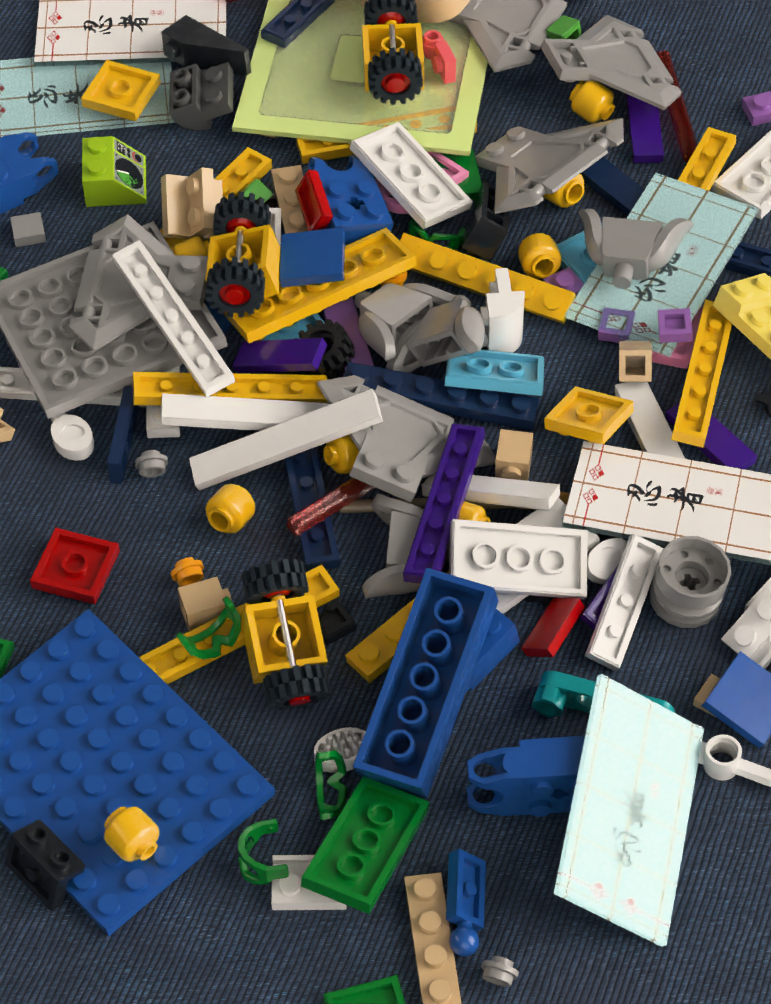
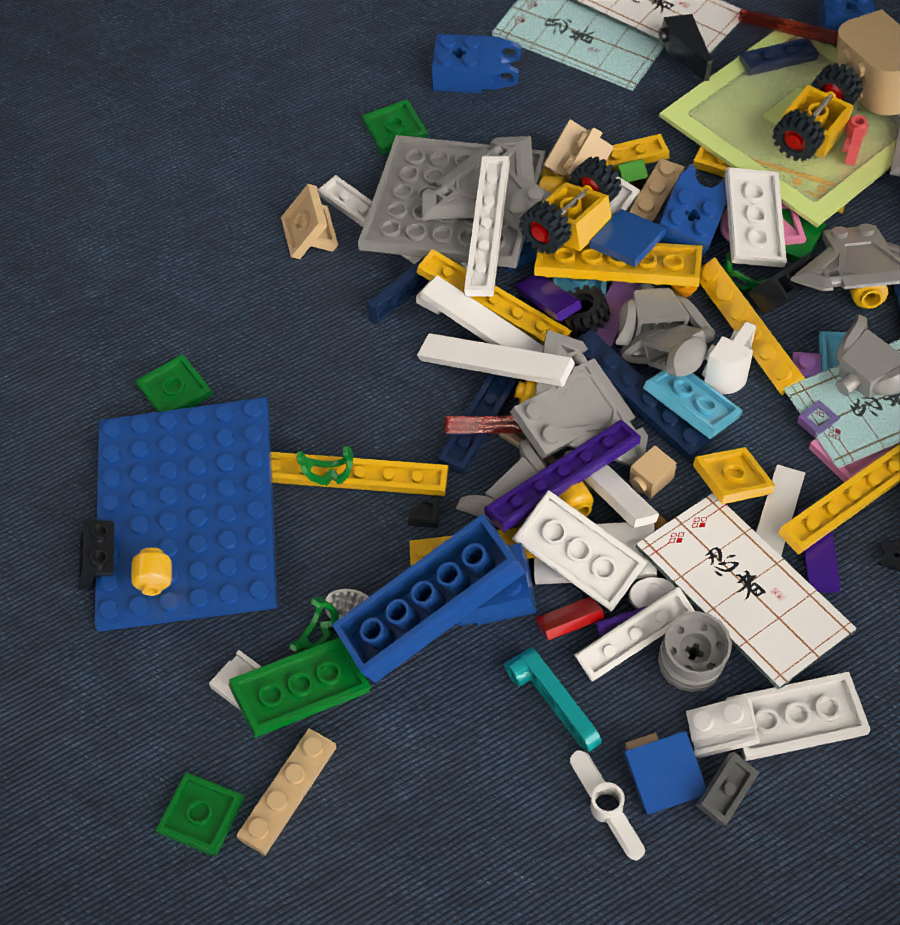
camera: 40 degrees right, 5 degrees up
(28, 229) = (466, 112): light grey tile -> none
(72, 436) = (367, 272): white piece -> none
(75, 566) = (292, 362): red plate -> none
(112, 173) = (552, 101): lime slope -> none
(121, 90) = (608, 46): yellow plate -> none
(151, 463) = (401, 322): light grey plate -> none
(187, 571) = (358, 413): light orange plate -> none
(200, 95) = (658, 78): dark grey brick -> none
(202, 601) = (349, 435): tan brick -> none
(230, 508) = (423, 386): yellow head -> none
(265, 873) = (241, 626): green helmet -> none
(284, 635) = (369, 499): brick -> none
(313, 201) = (662, 197): red tile -> none
(465, 900) = (332, 775): blue plate -> none
(499, 971) = (310, 844): light grey plate -> none
(528, 778) = (453, 722): blue brick -> none
(539, 256) = (803, 332): yellow head -> none
(630, 811) = (491, 795): clear light blue piece -> none
(635, 361) = (804, 455): tan brick -> none
(674, 325) = (856, 446): medium lavender plate -> none

